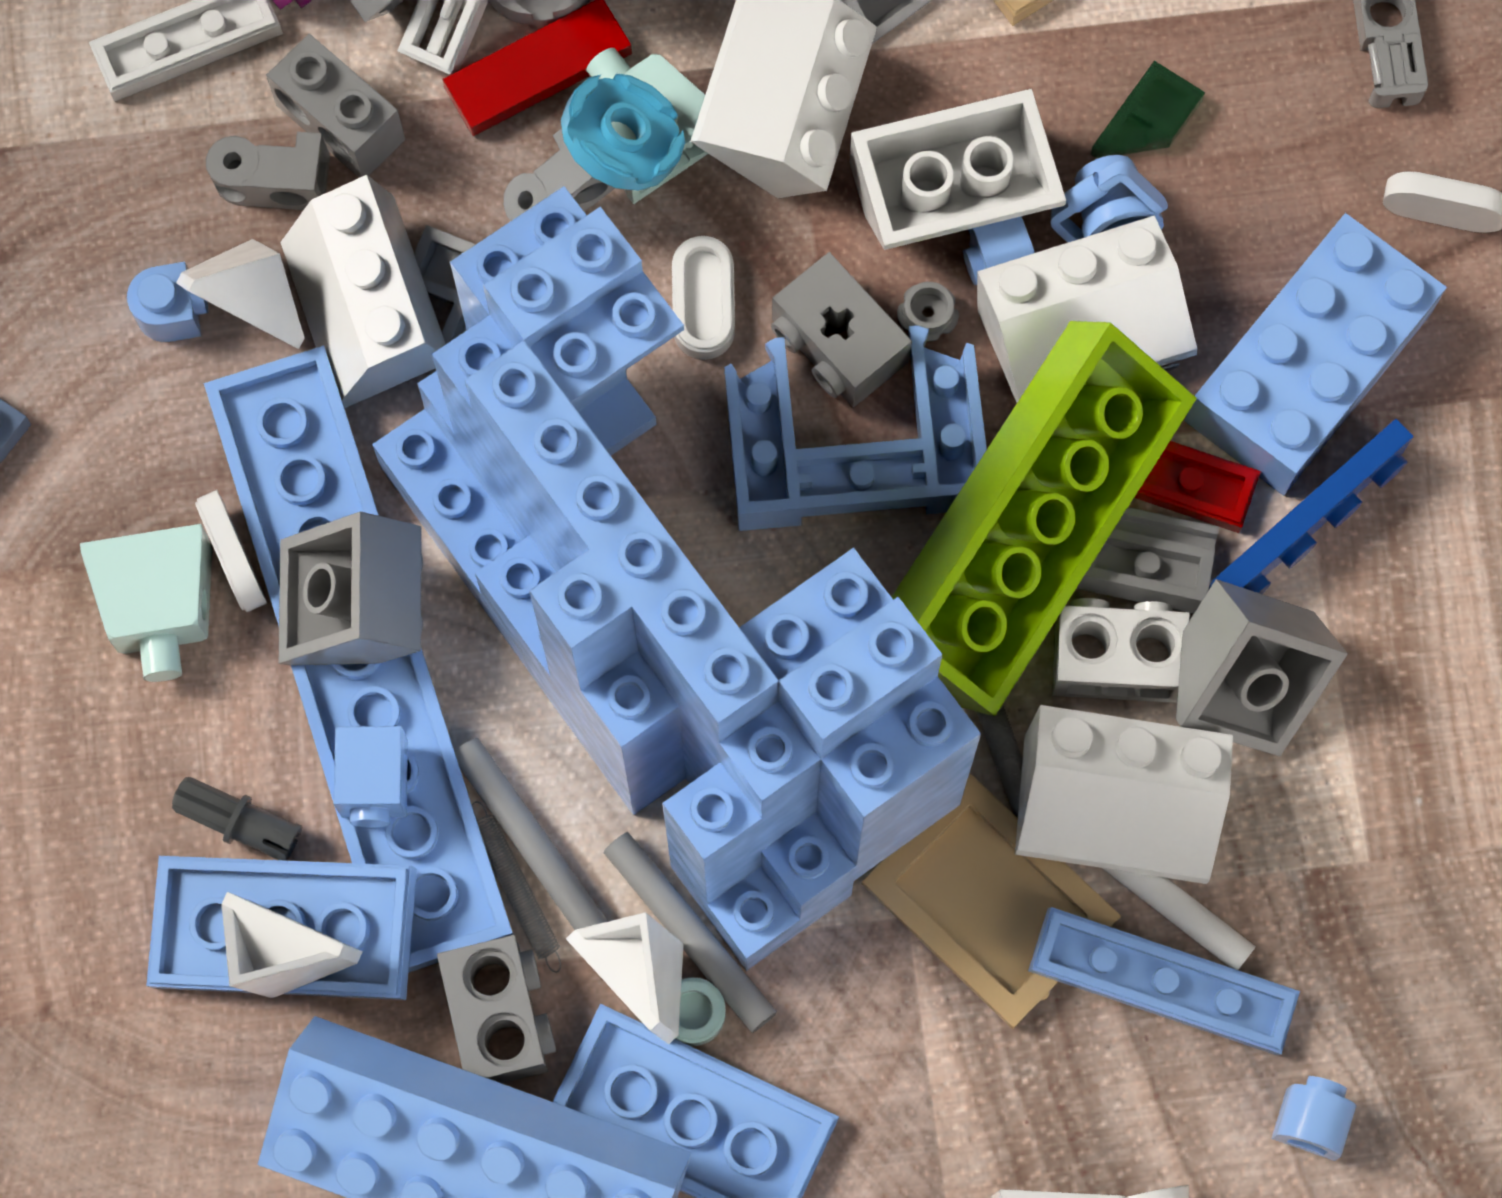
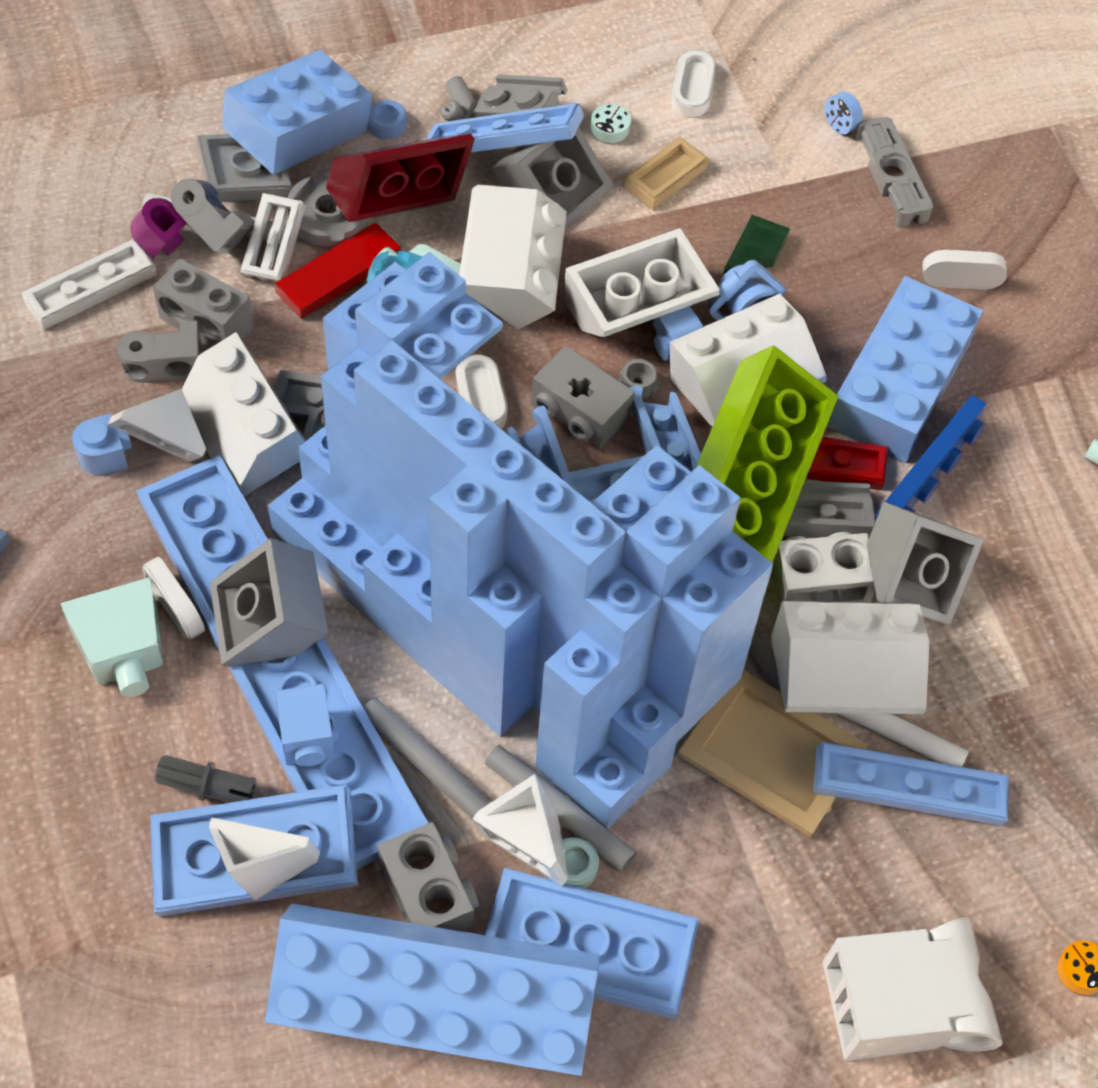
camera: 15 degrees left, 15 degrees down
(1315, 1117) = (1045, 858): light blue plate -> none

